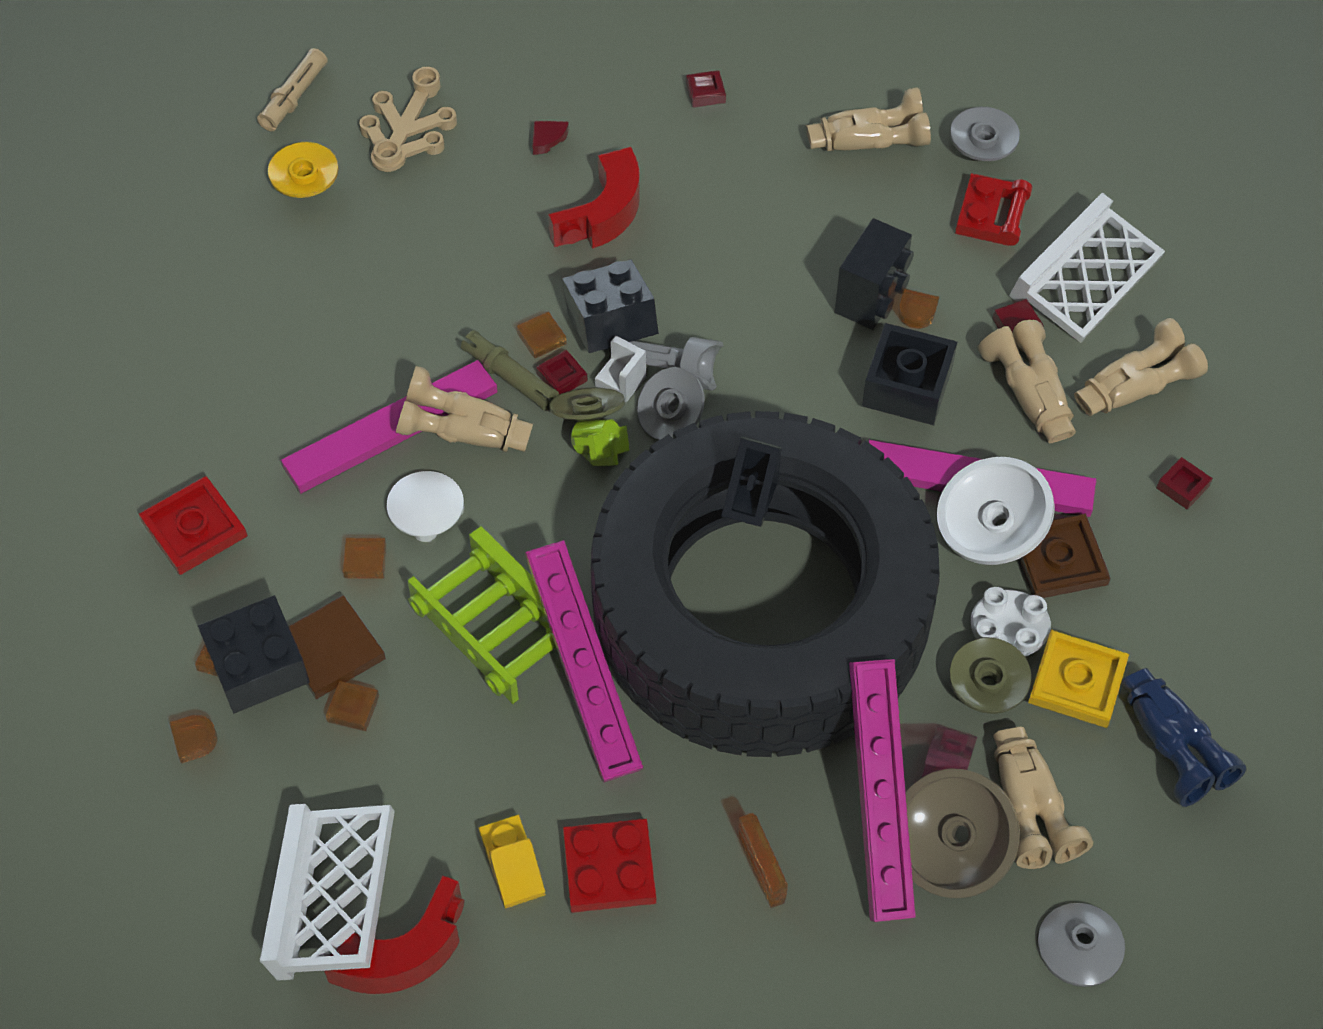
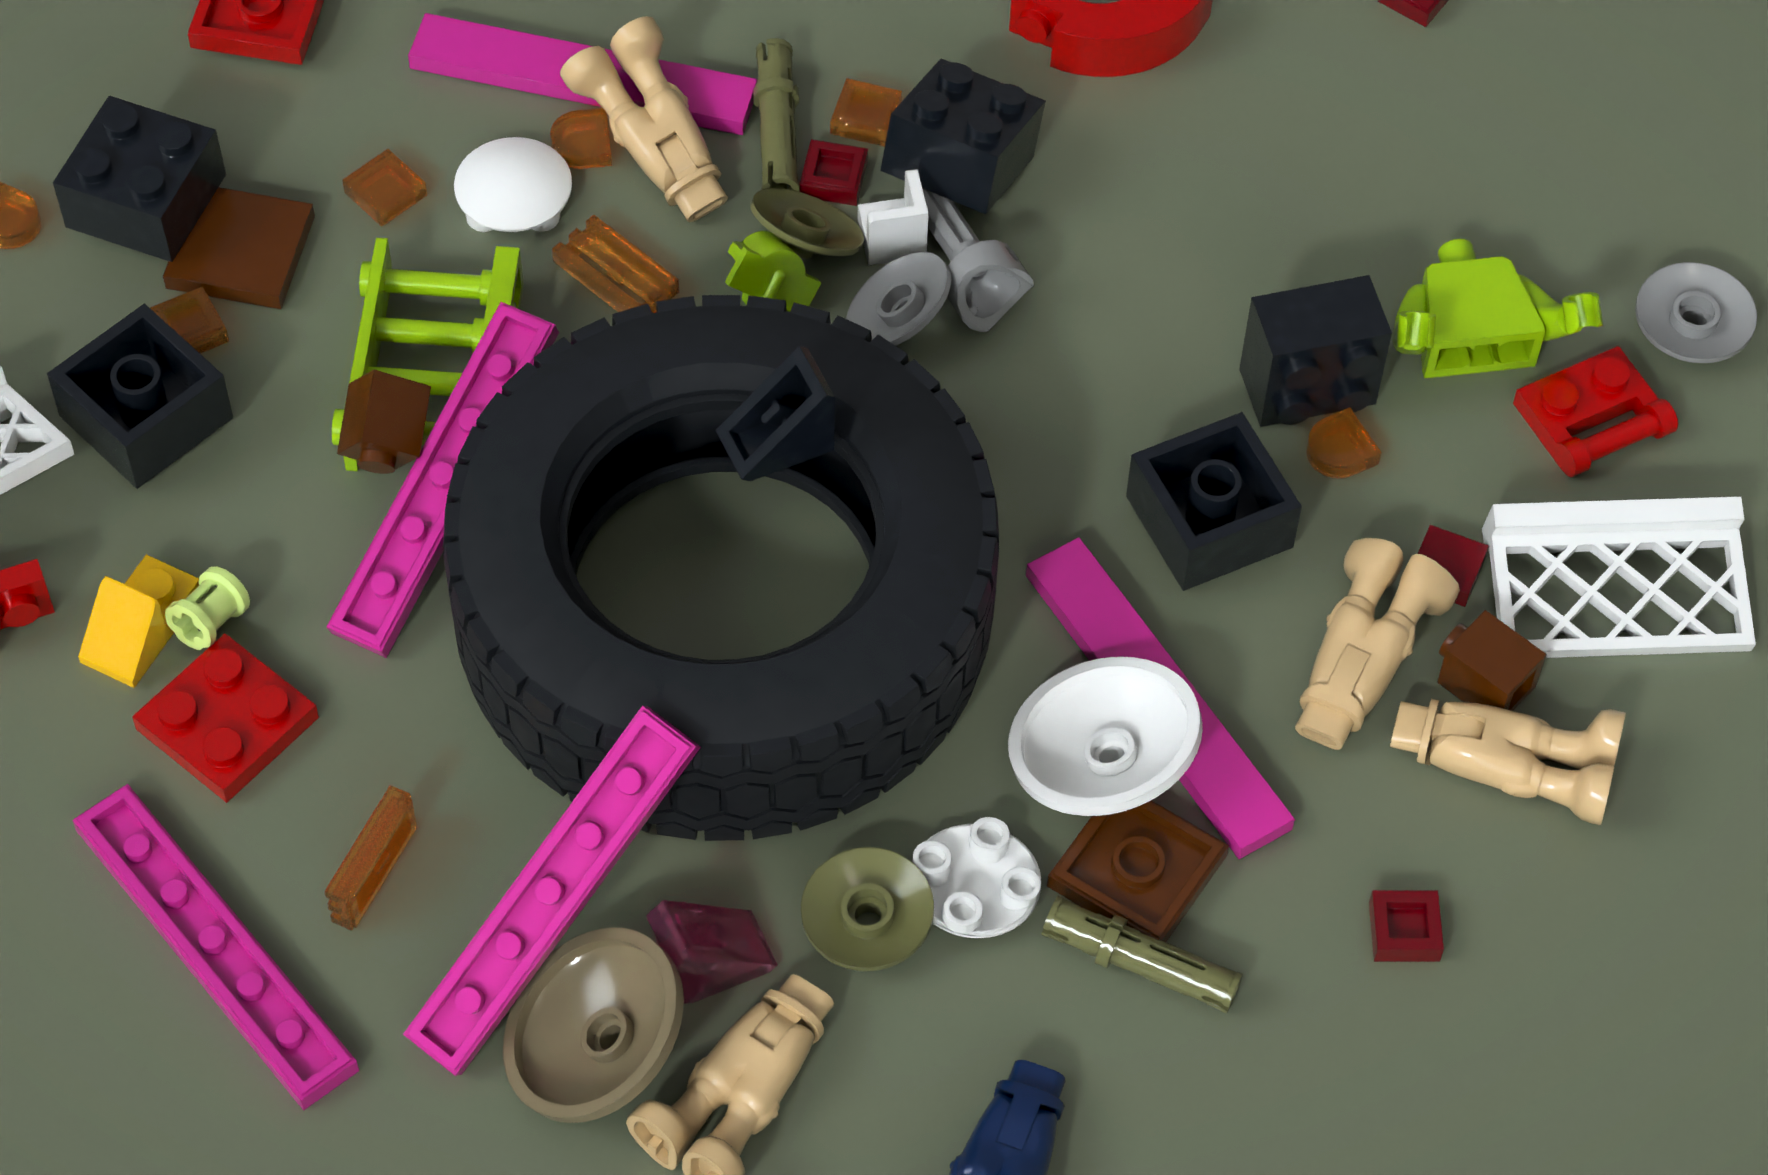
camera: 45 degrees right, 0 degrees up
(386, 755) = (140, 395): none -> black brick
(430, 454) = (582, 138): none -> clear orange tile
(522, 496) = (622, 262): none -> clear orange tile
(529, 658) = (383, 421): none -> reddish brown brick
(543, 823) = (207, 608): none -> yellowish green bush
(737, 969) = (216, 947): none -> dark pink tile
(874, 127) = (1558, 188): tan piece -> none
(915, 199) = (1483, 315): none -> lime torso
(1079, 678) = (970, 1011): yellow plate -> none
(1089, 347) = (1489, 663): none -> reddish brown brick
(1096, 595) = (1131, 950): none -> olive pin

